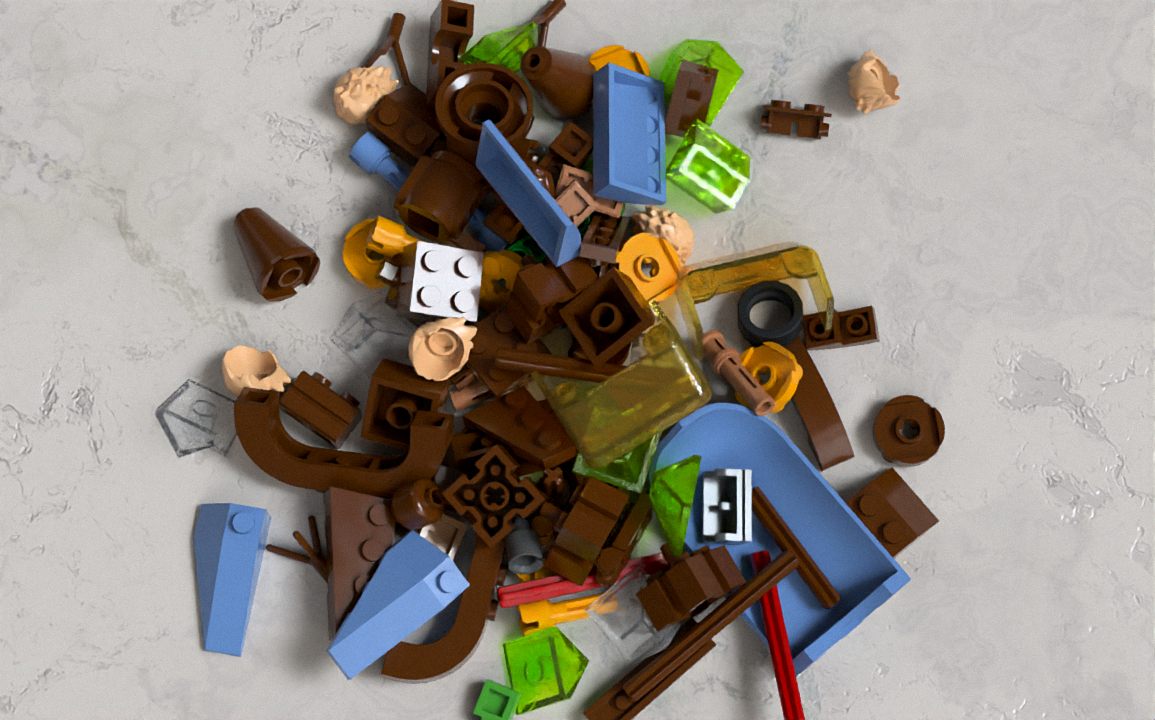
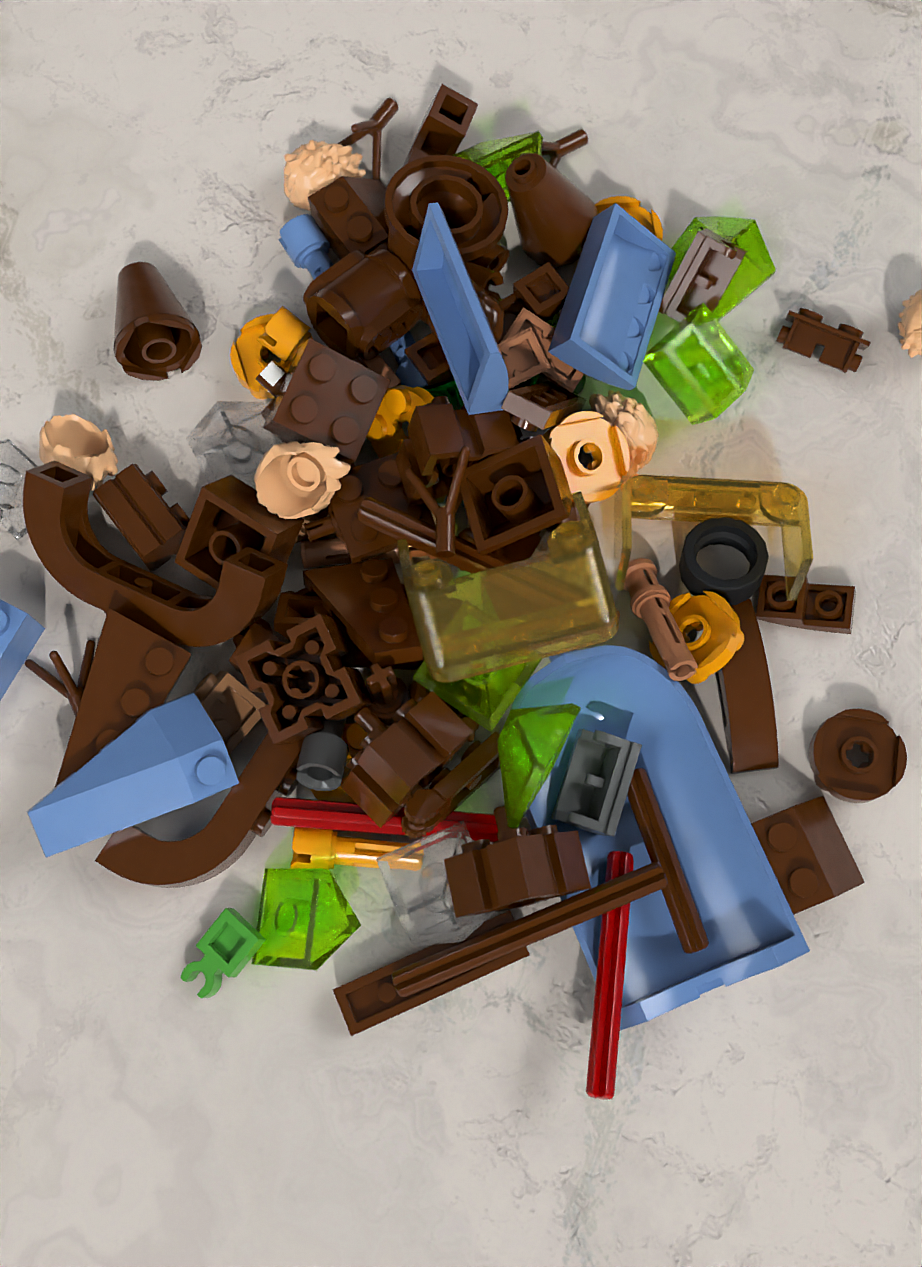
camera: 20 degrees right, 0 degrees up
(418, 504) = (207, 662): reddish brown head -> none
(562, 346) = (444, 515): none -> reddish brown plant

